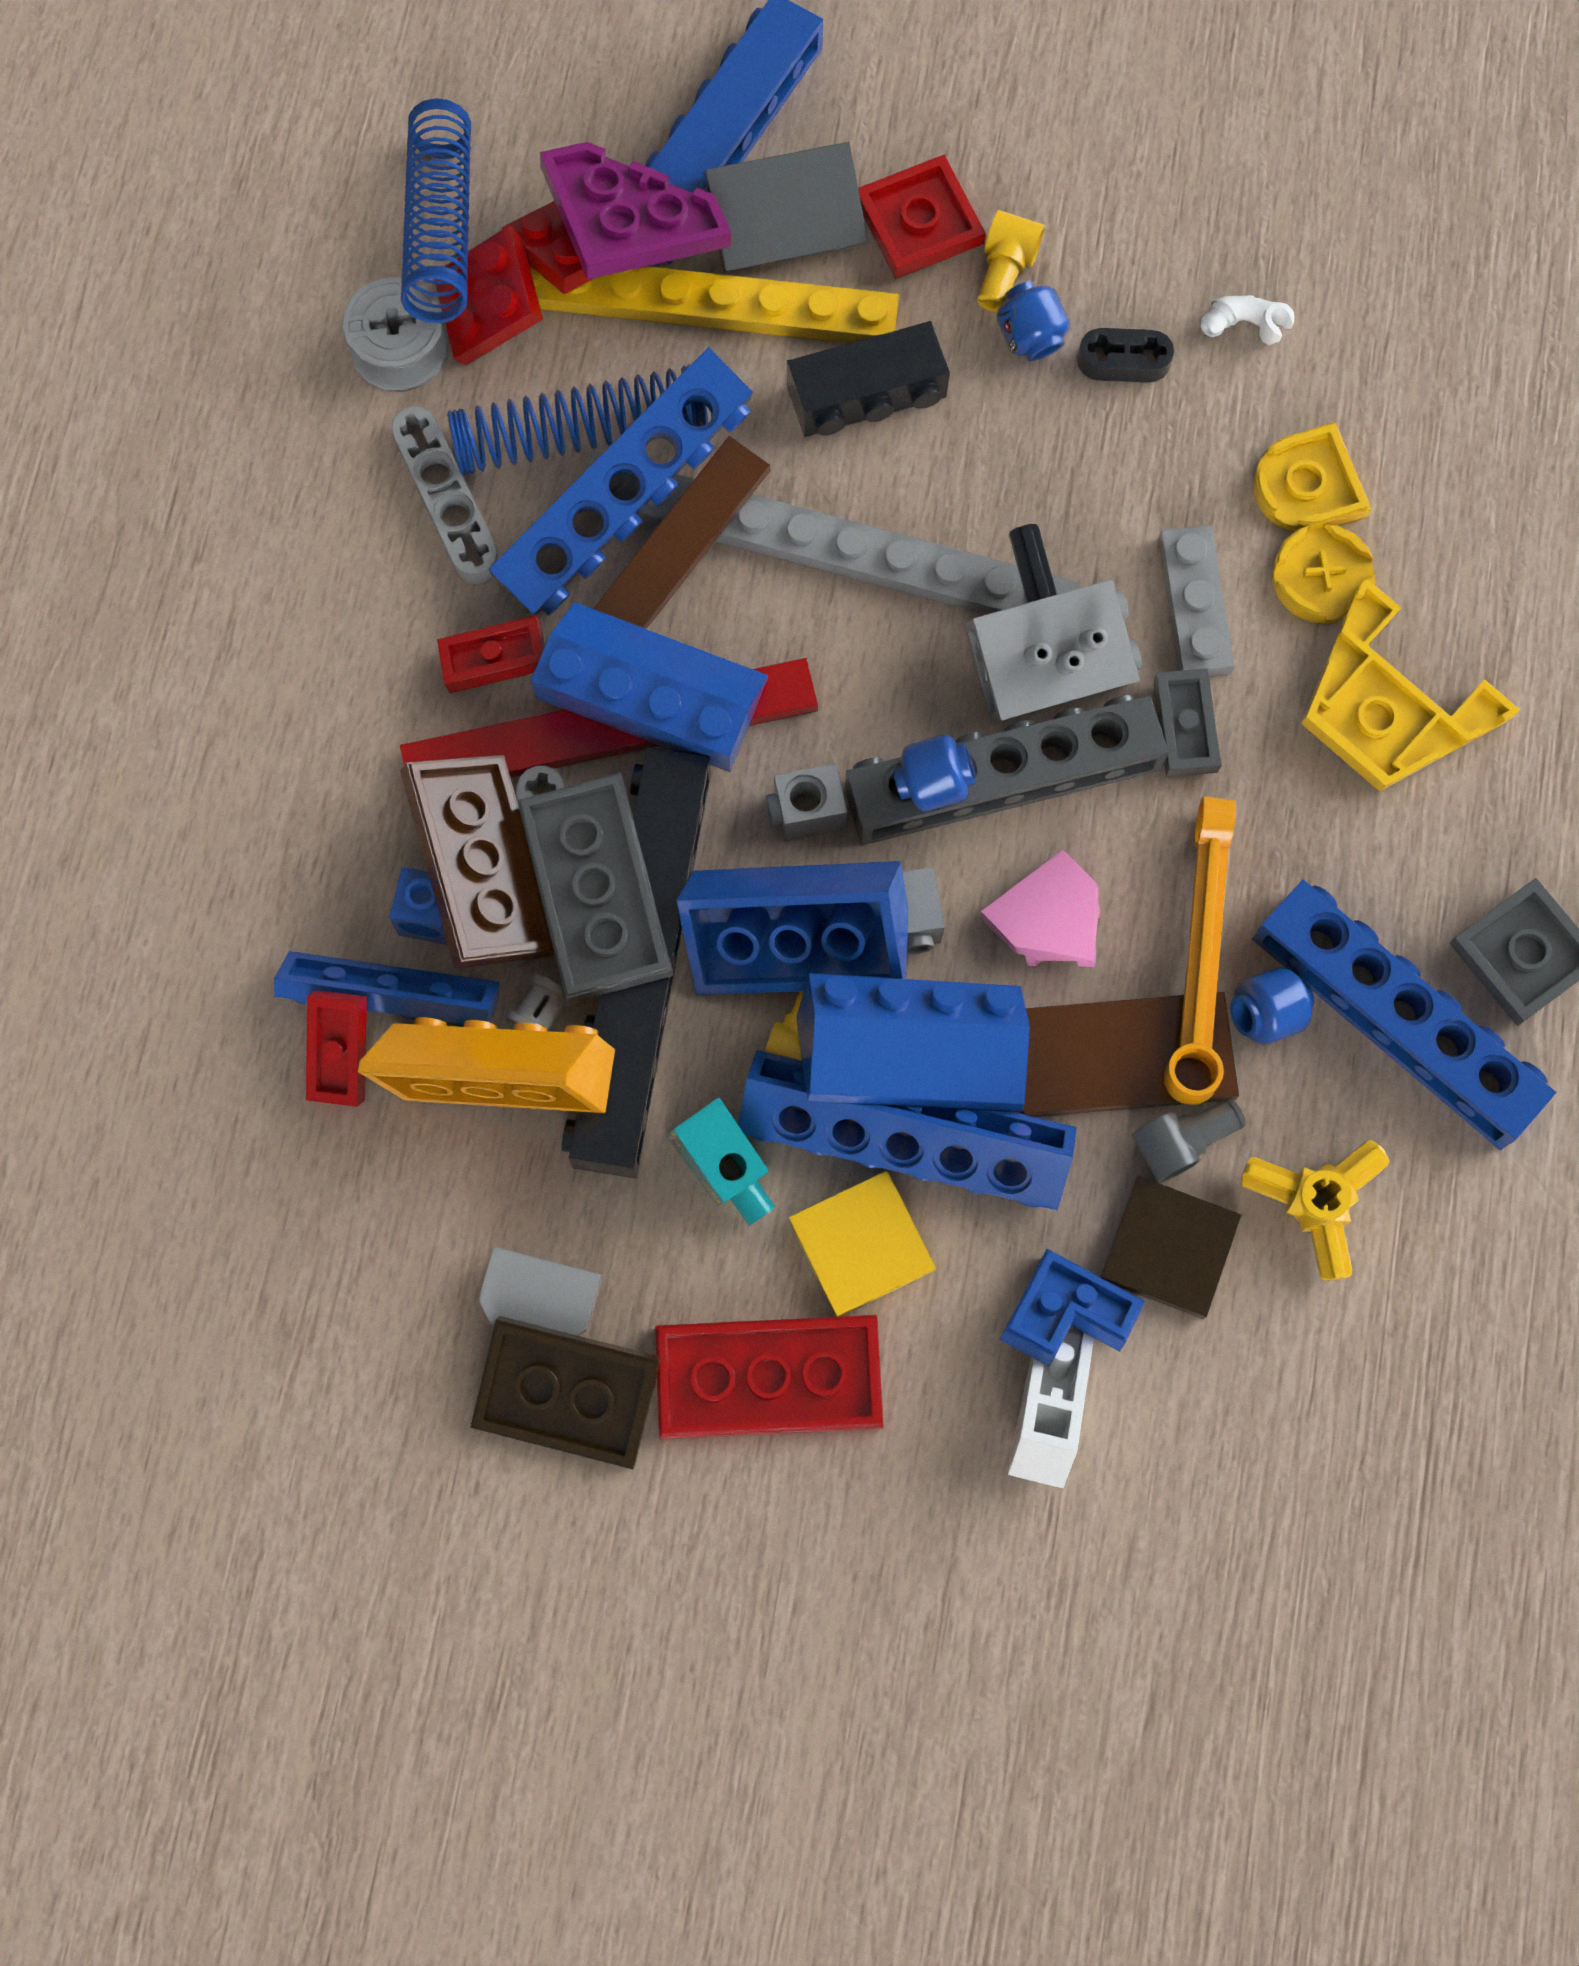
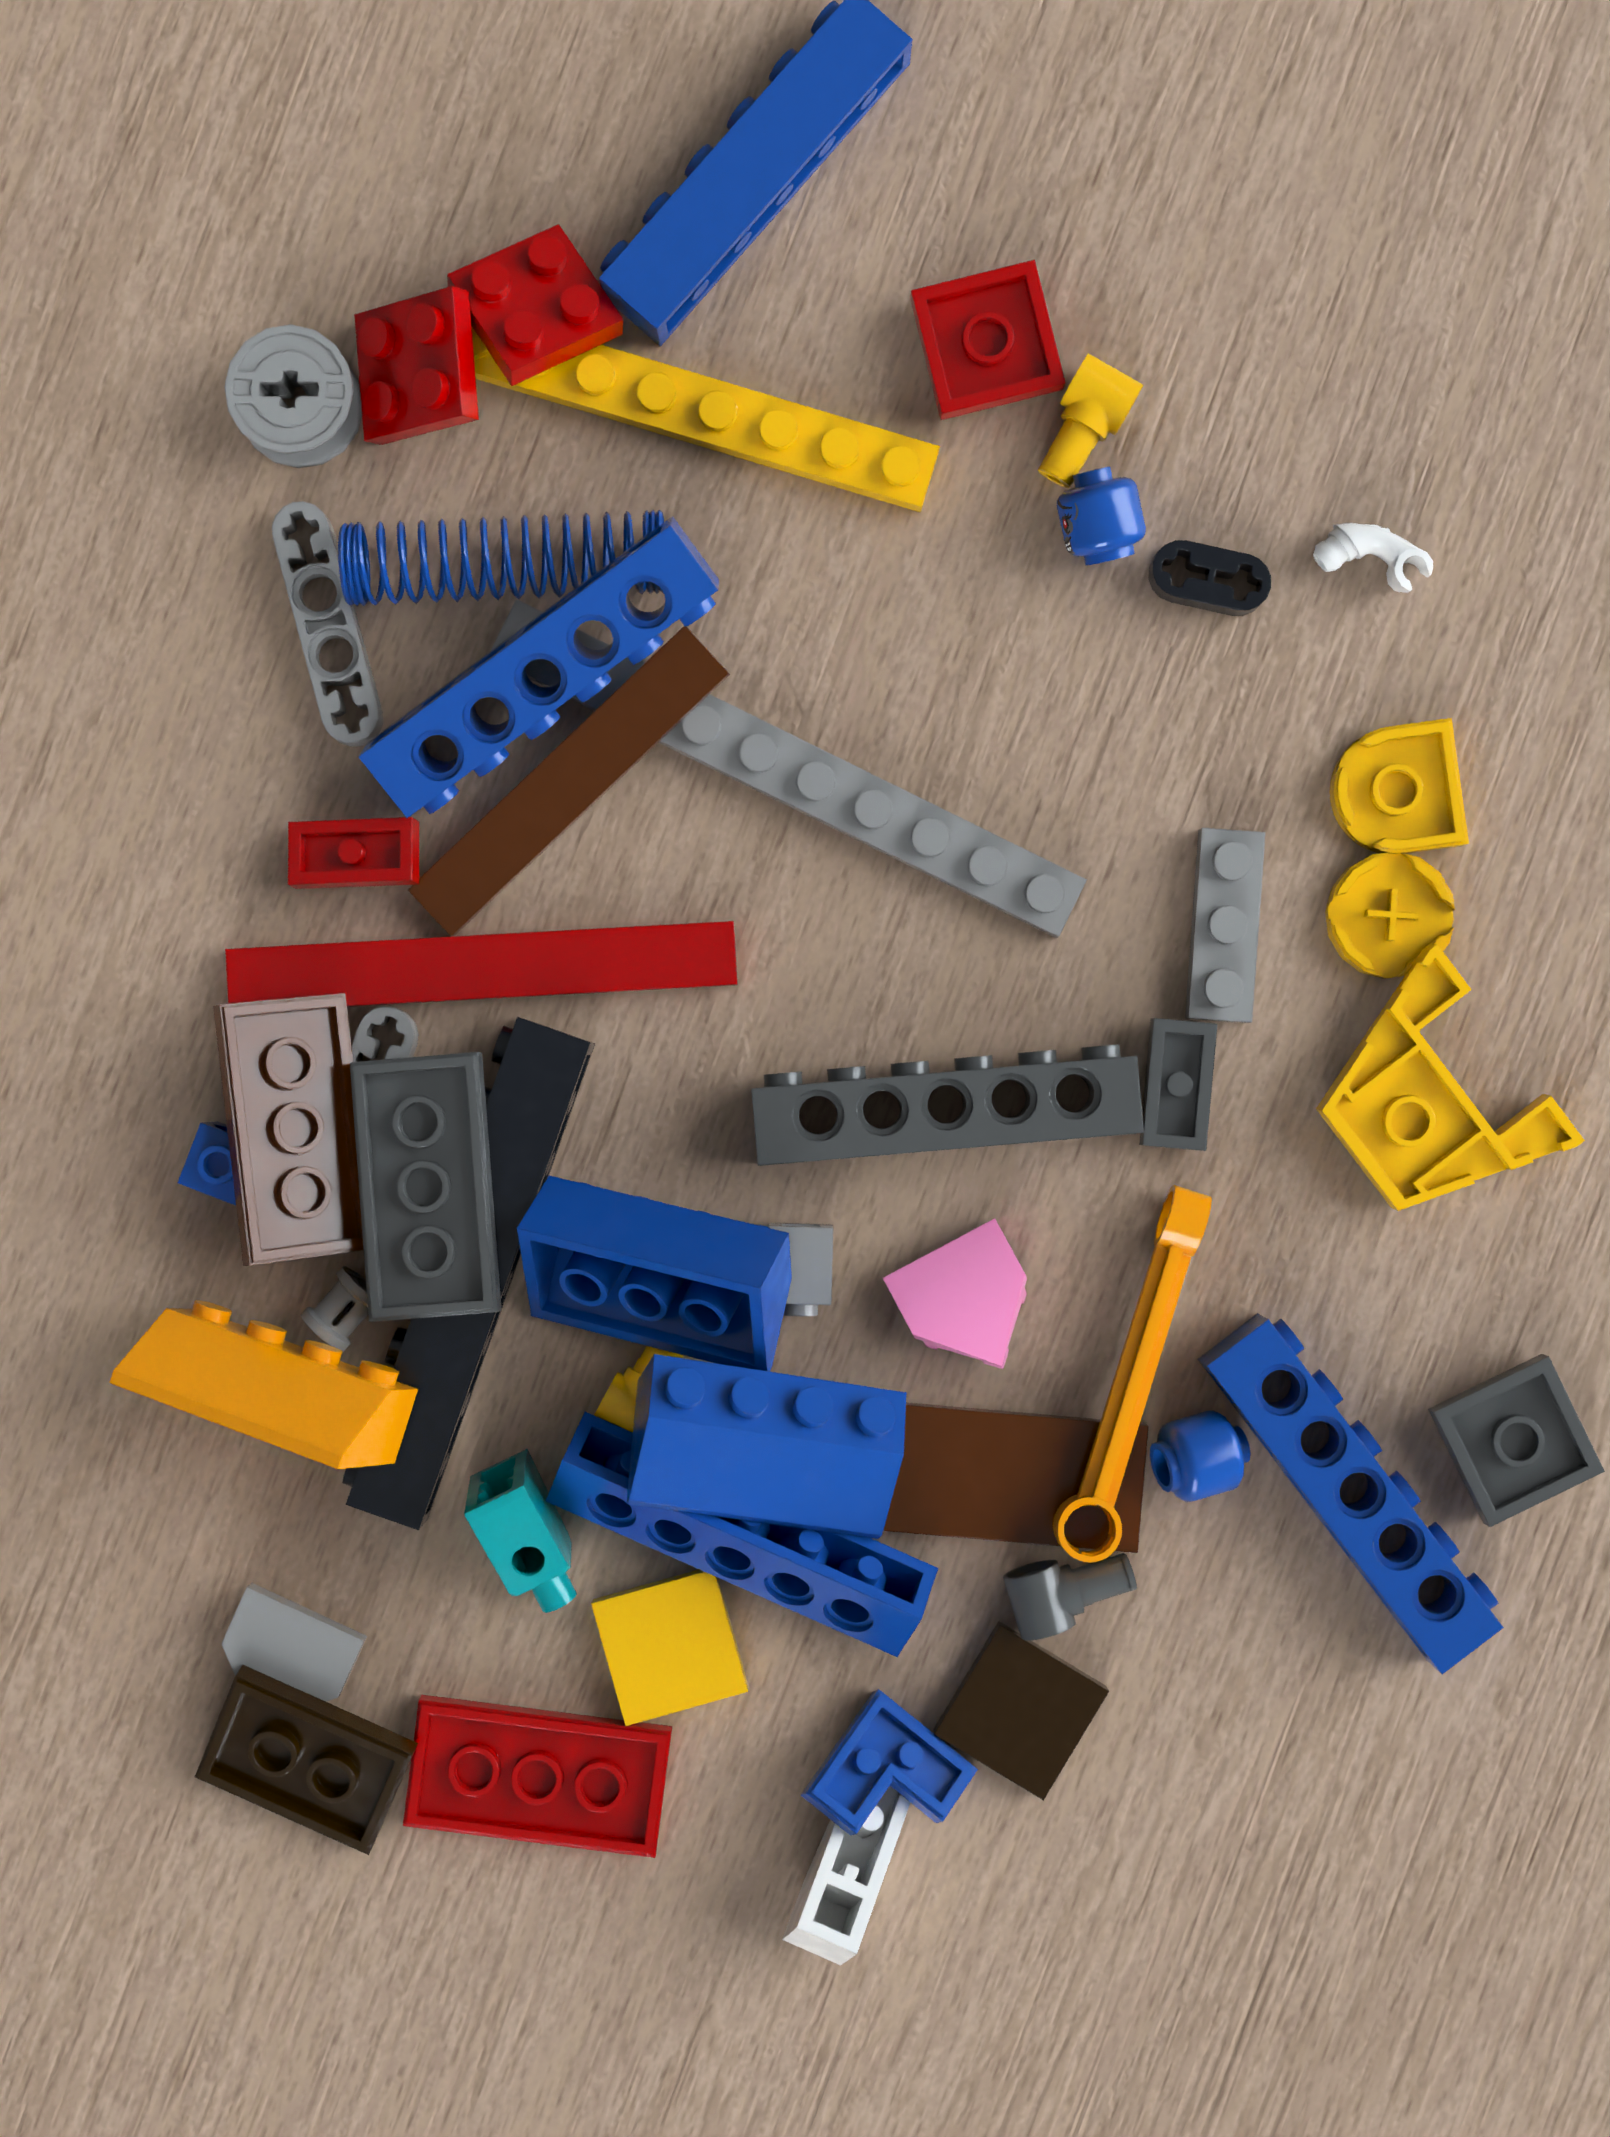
camera: 10 degrees right, 15 degrees up
(335, 1048) = (97, 1318): red plate -> none
(389, 988) = (165, 1254): blue plate -> none
(443, 273) = (375, 129): blue piece -> none
(630, 213) = (606, 293): magenta plate -> none
(648, 685) = (533, 933): blue slope -> none
(788, 206) = (816, 304): dark grey tile -> none
(817, 782) = (729, 1117): light grey brick -> none
(868, 379) = (878, 563): black brick -> none
(935, 773) = (853, 1123): blue head -> none
(1052, 644) = (1033, 966): light grey piece -> none
(1300, 1188) = (1226, 1680): yellow bush -> none

